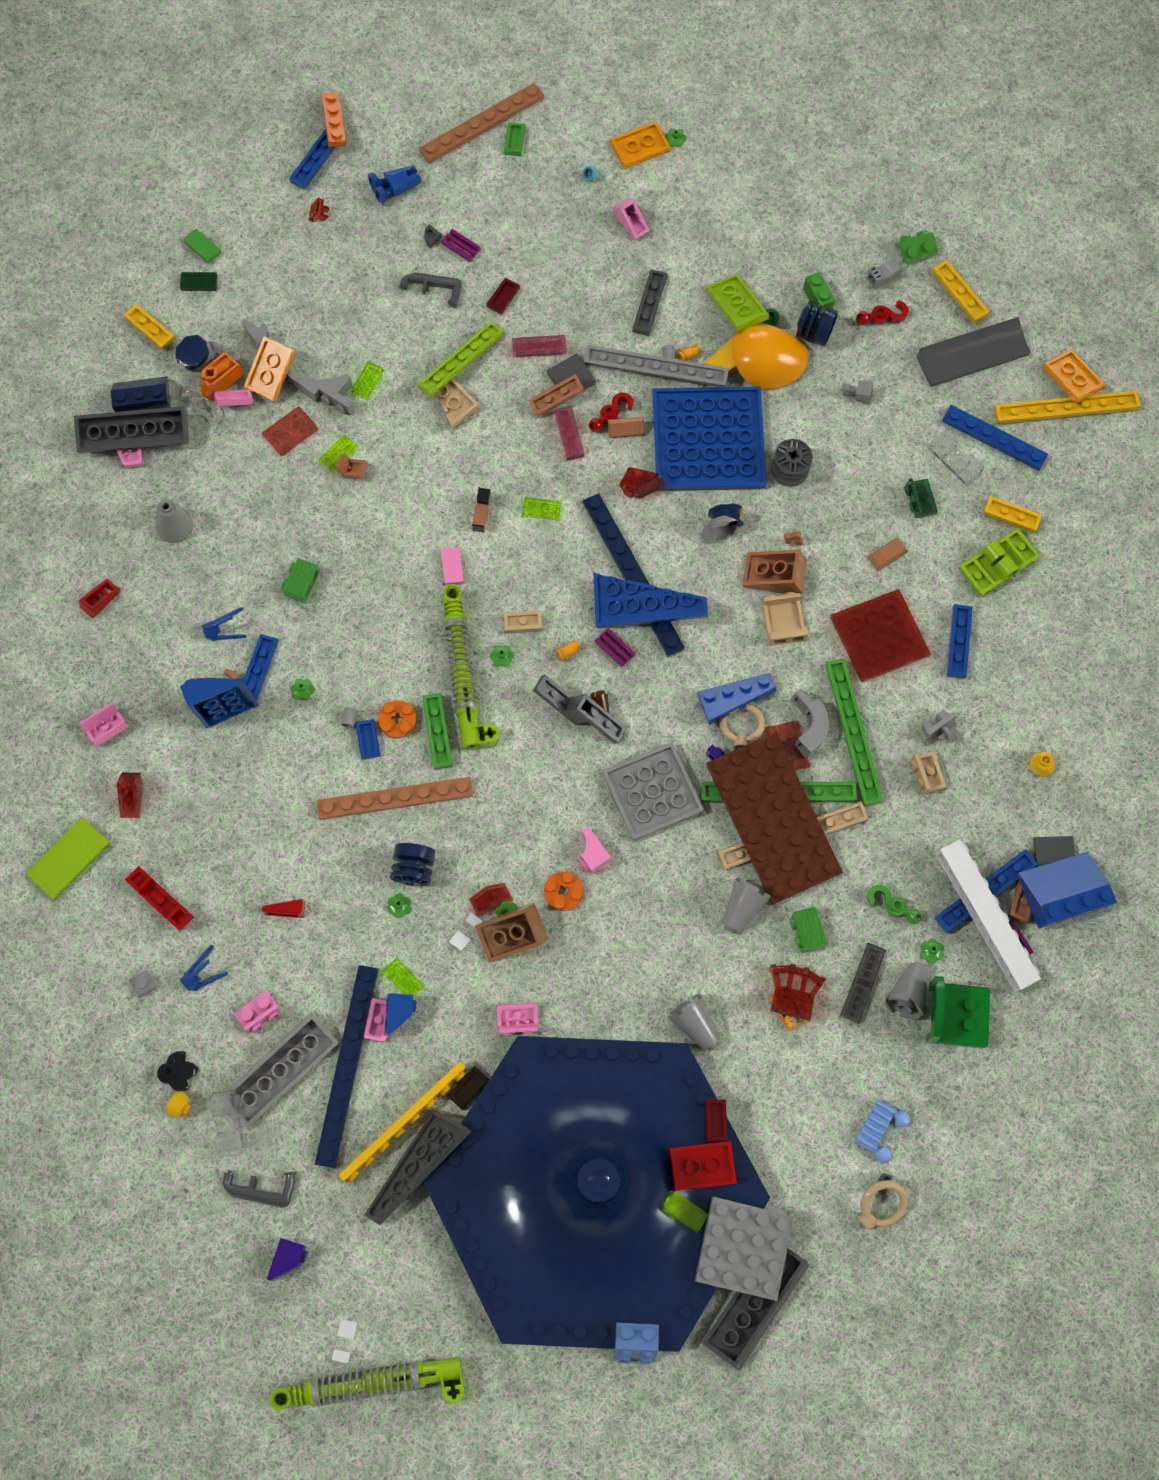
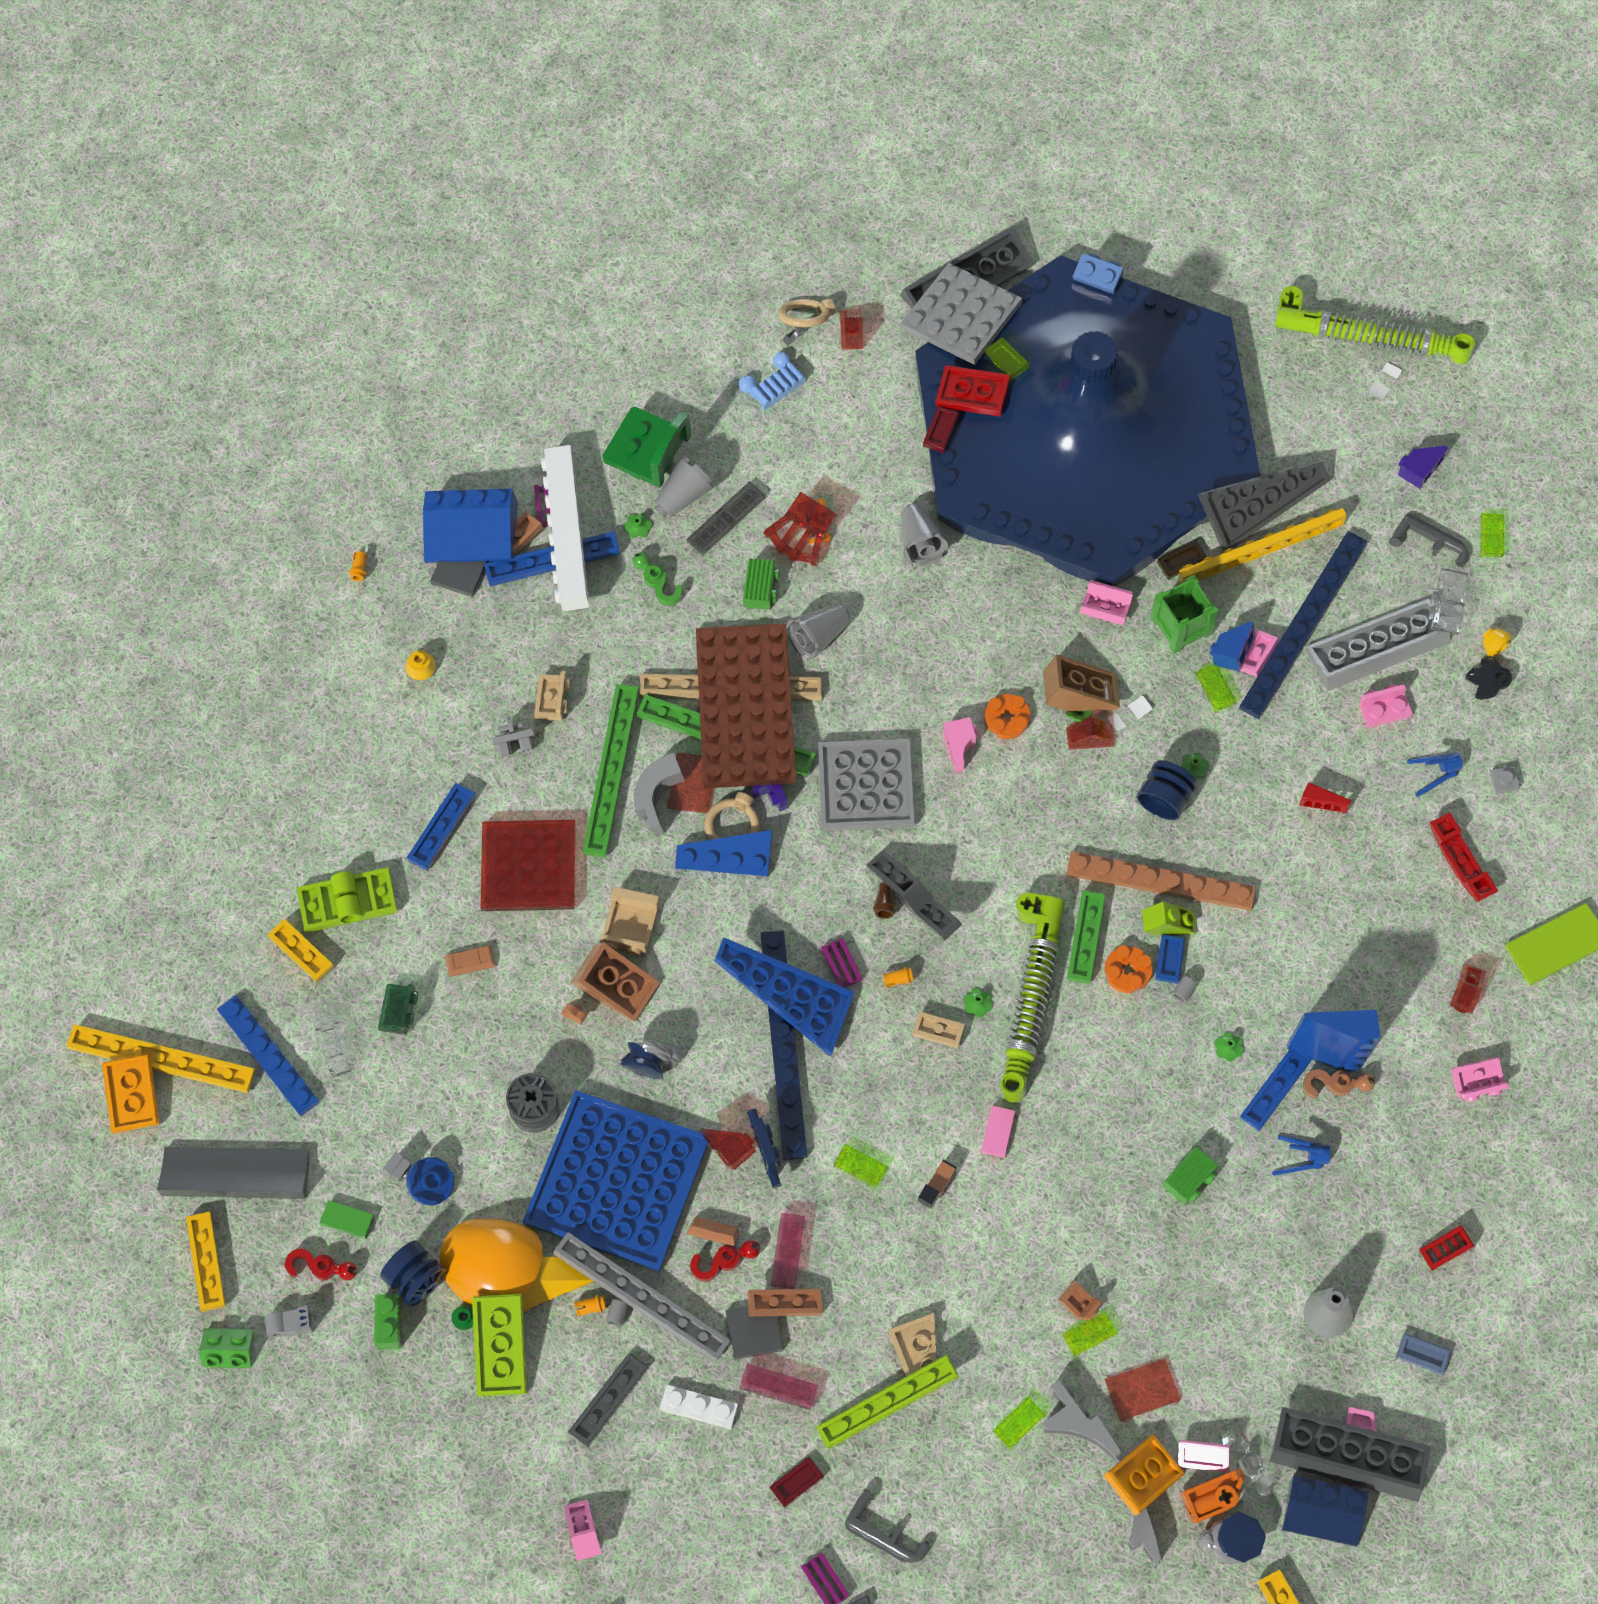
camera: 155 degrees left, 5 degrees down
(98, 520) = (1423, 1354): none -> sand blue tile
(207, 1213) = (1492, 535): none -> clear neon green tile
(377, 764) = (1168, 920): none -> lime slope
(447, 1011) = (1187, 604): none -> bright green container
(587, 318) = (698, 1407): none -> white plate
(613, 488) = (764, 1140): none -> dark blue plate
(837, 389) = (430, 1181): none -> blue tile
(838, 1209) = (851, 329): none -> clear red slope
(881, 351) = (347, 1219): none -> bright green tile
(1135, 827) = (358, 571): none -> light orange pin

